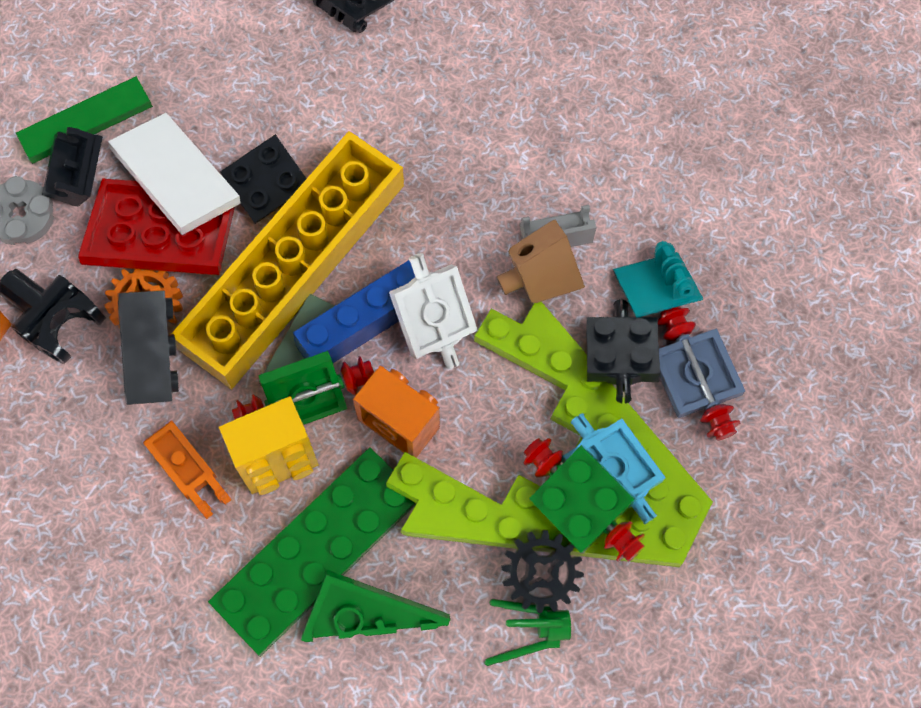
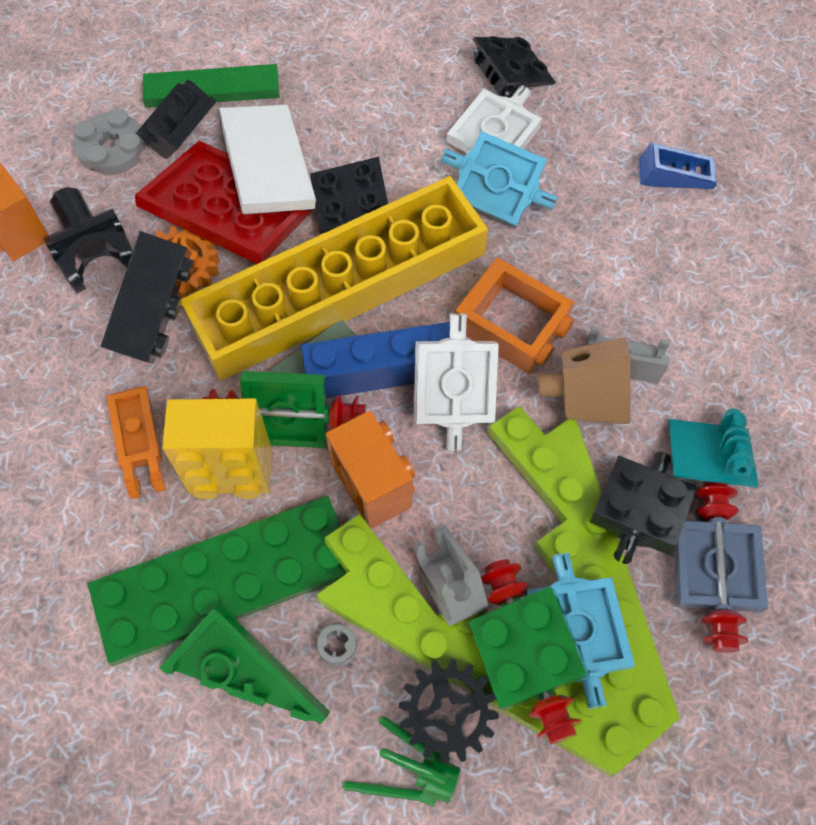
camera: 25 degrees right, 5 degrees down
(362, 67) = (497, 116): none -> white plate
(389, 113) = (500, 178): none -> medium azure plate
(421, 564) = (323, 645): none -> light grey bush
(441, 257) = (511, 348): none -> orange window
(499, 471) = (451, 578): none -> light grey hinge
(517, 54) = (657, 173): none -> blue slope

